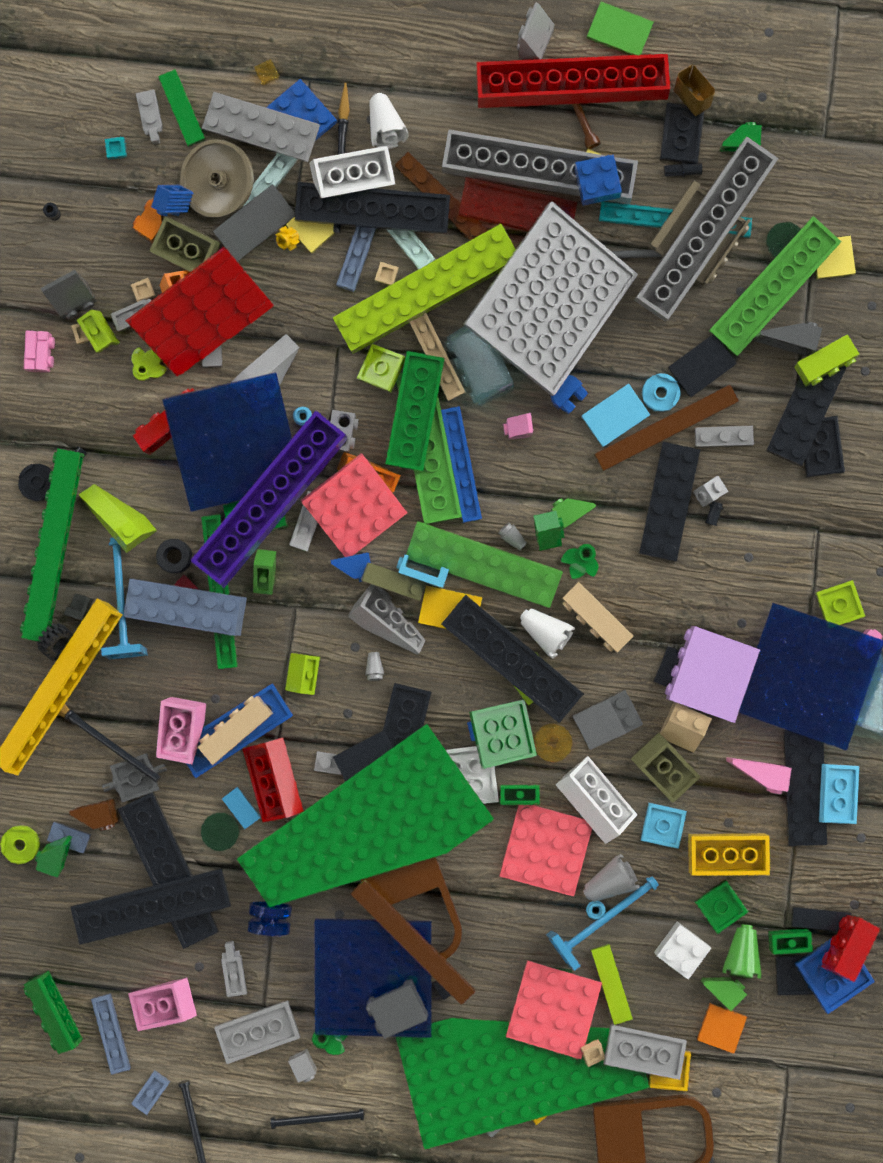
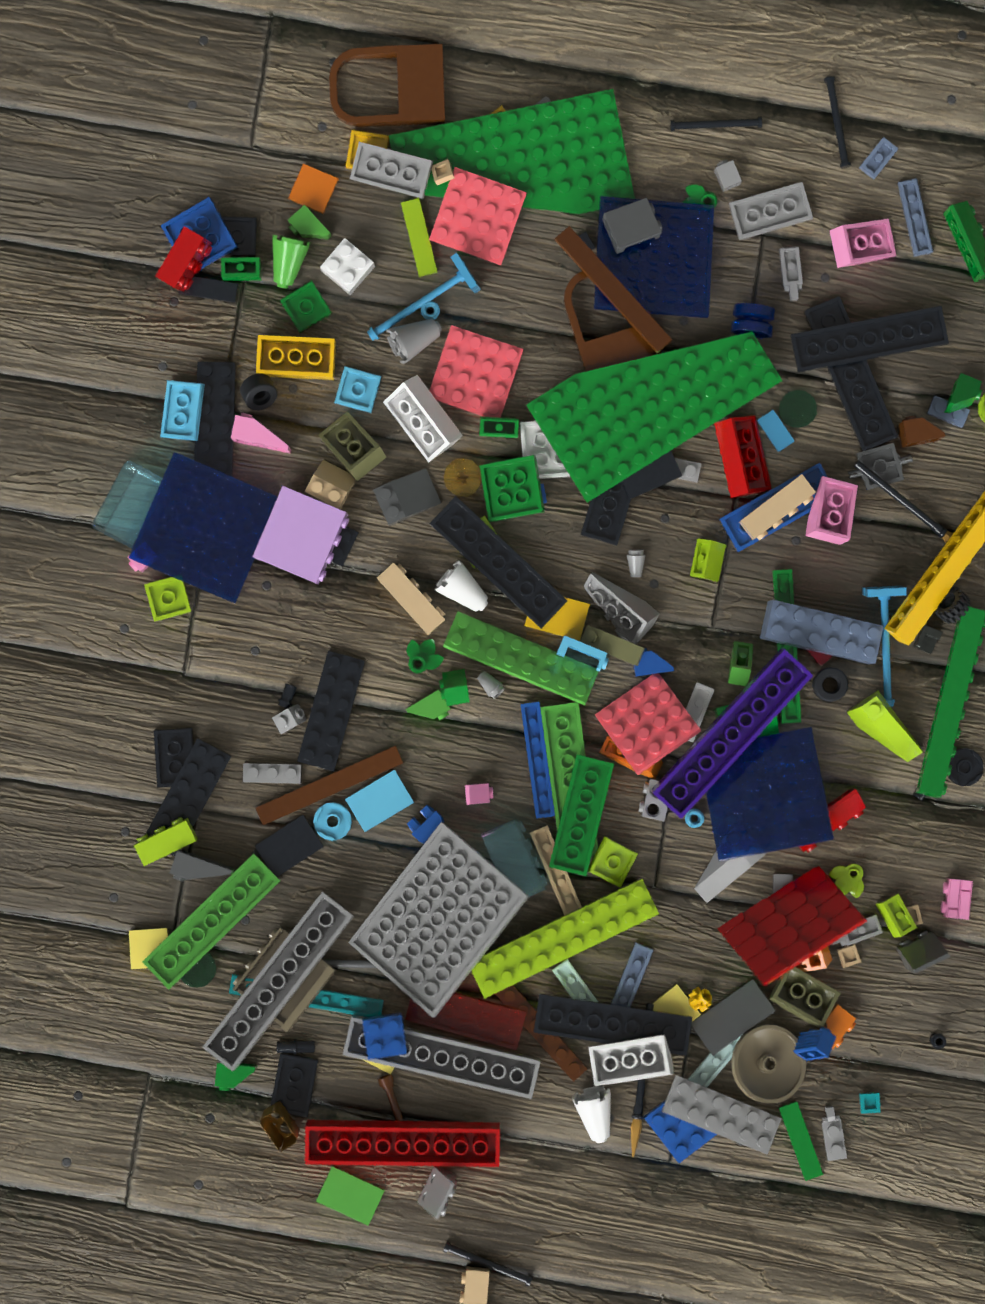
camera: 175 degrees left, 0 degrees up
(266, 72) = (712, 1173): clear yellow tile -> none
(386, 274) = (602, 957): tan plate -> none
(764, 817) = (258, 392): none -> black tyre

